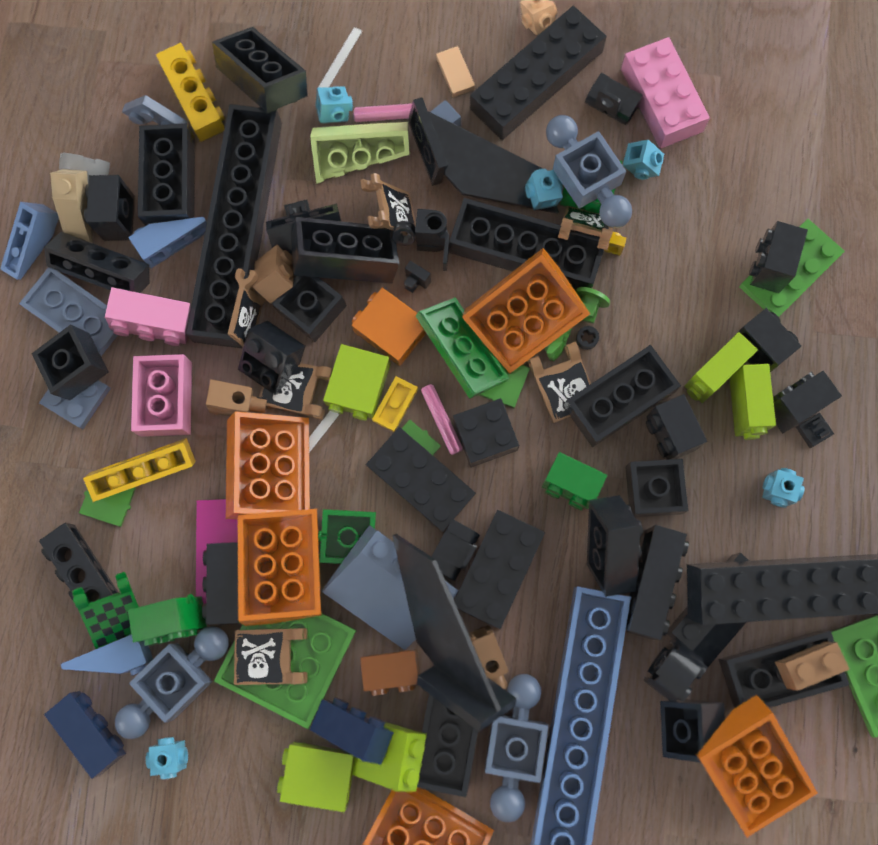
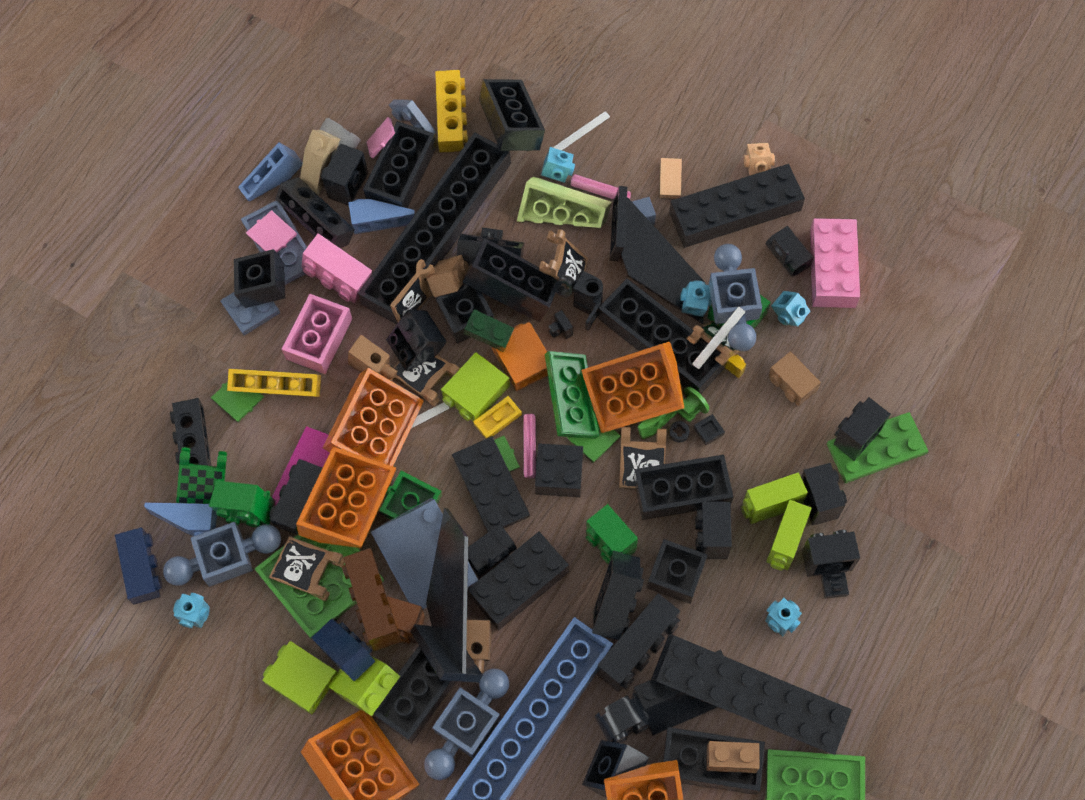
camera: 20 degrees right, 10 degrees down
(60, 305) = (271, 232): none -> bright pink piece
(130, 151) = (380, 137): none -> bright pink piece
(347, 316) = (488, 330): none -> dark green brick
(360, 671) = (371, 600): none -> reddish brown wedge
(592, 222) = (717, 339): none -> white sticker
(617, 323) = (709, 429): none -> black plate
(679, 232) = (794, 379): none -> medium nougat brick

